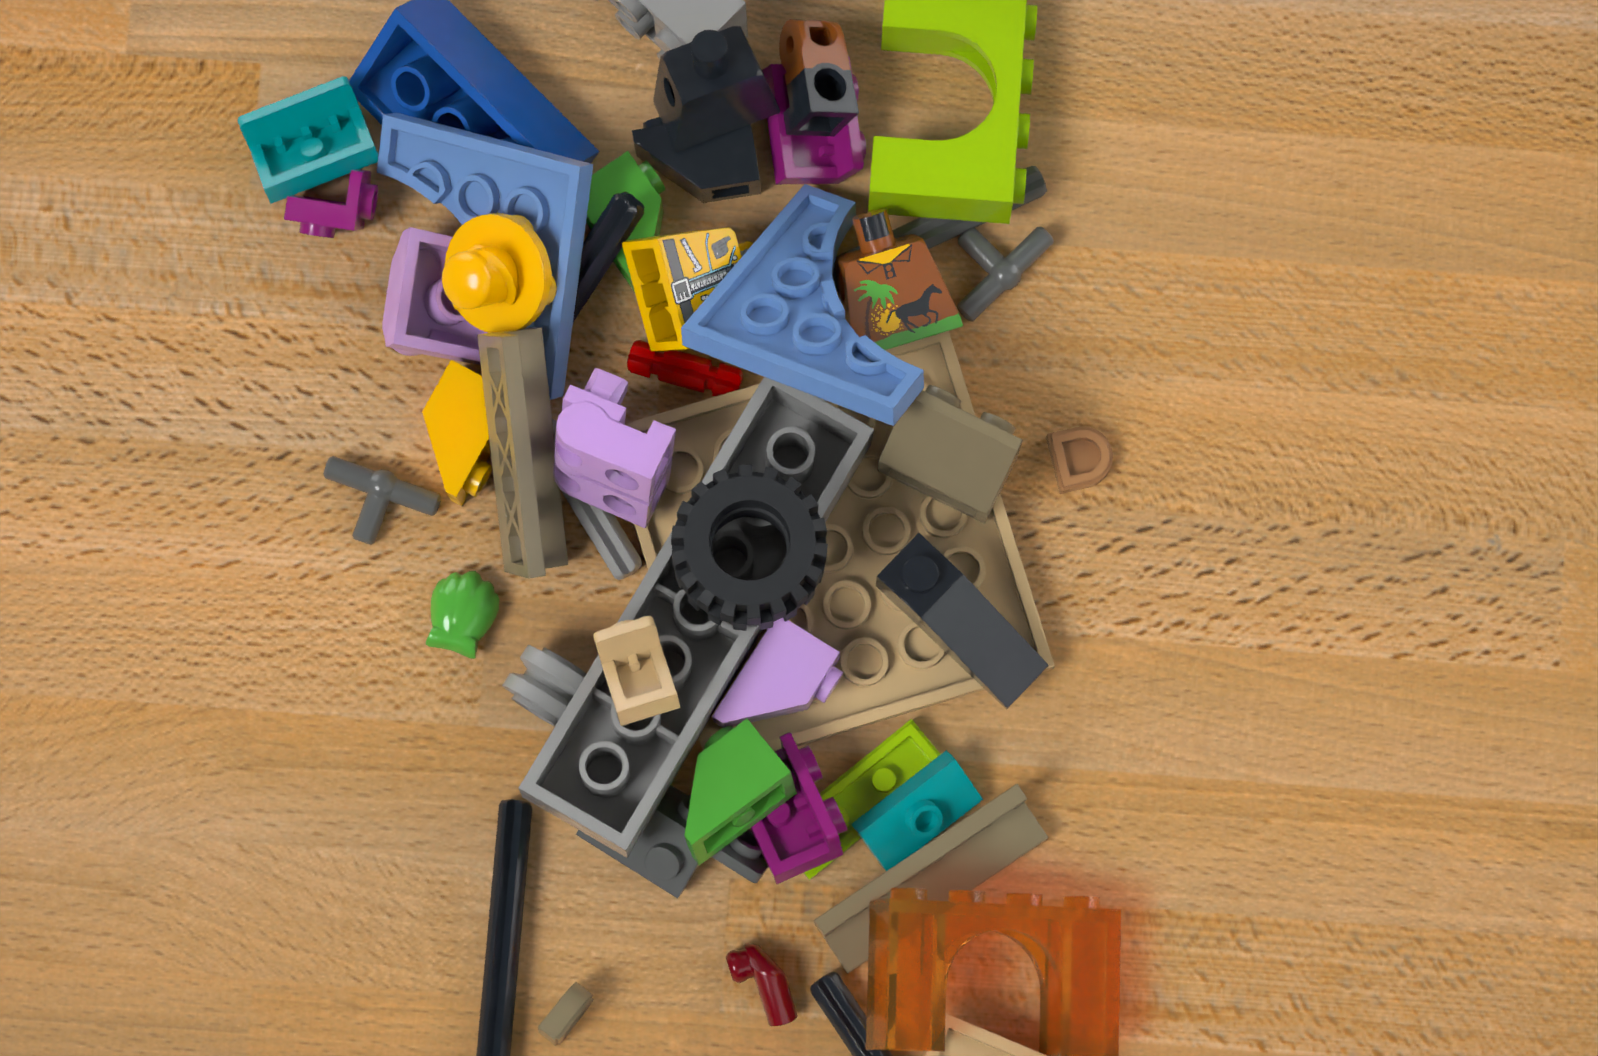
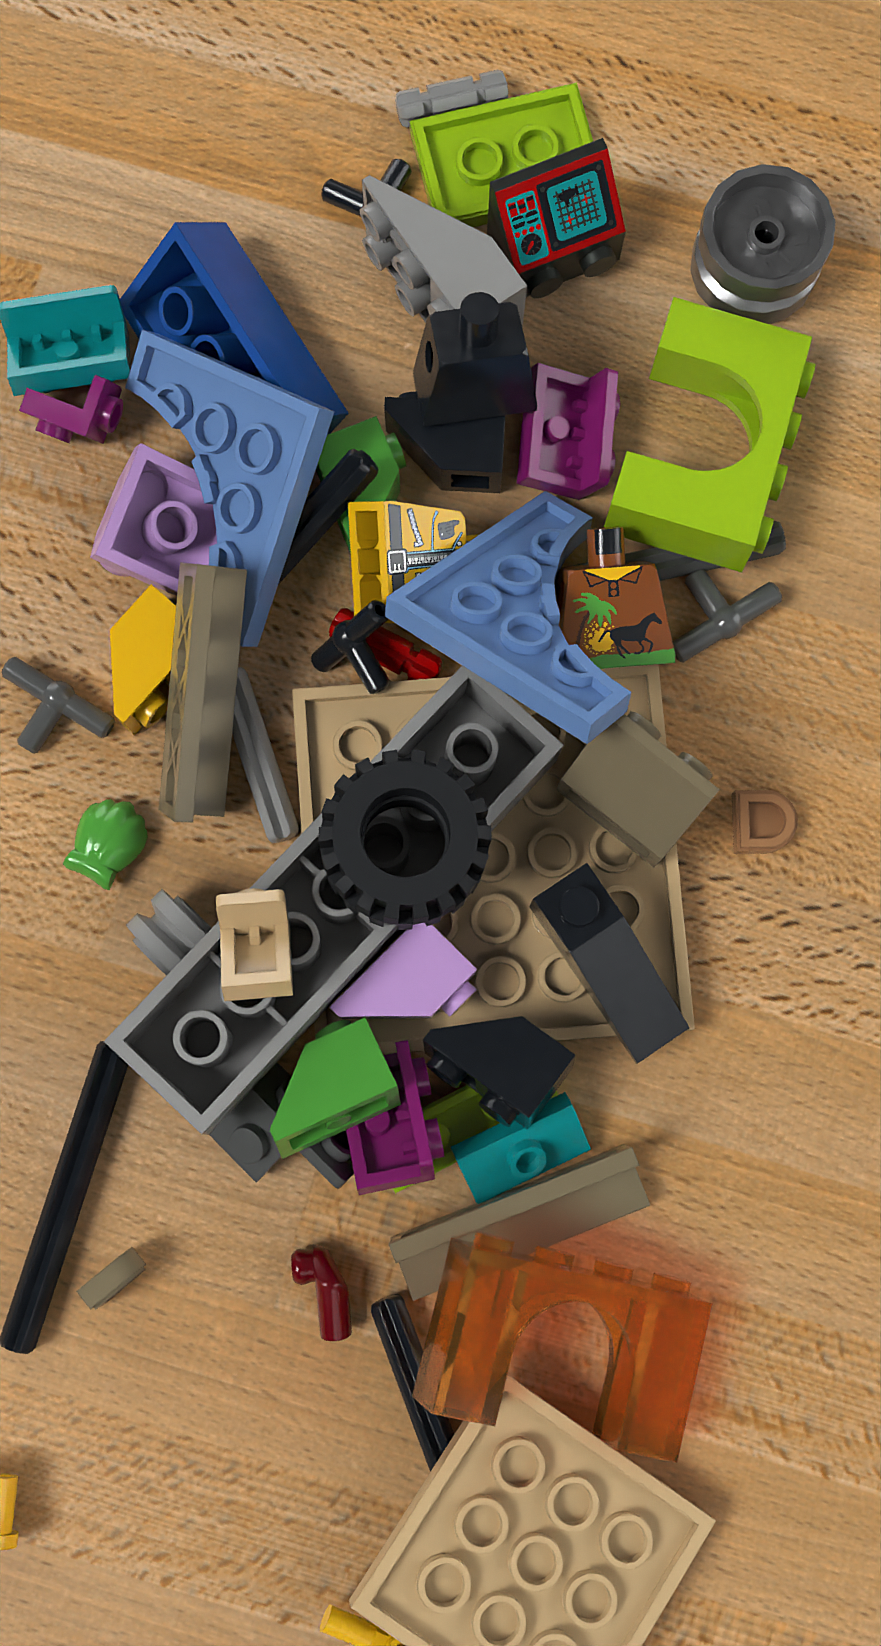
camera: 10 degrees right, 0 degrees up
(498, 273) = (214, 505): yellow plate -> none
(604, 458) = (282, 717): lavender hips -> none
(652, 371) = (350, 641): none -> black piece
(816, 78) = (581, 385): leg -> none
(882, 732) = (504, 1062): none -> black slope

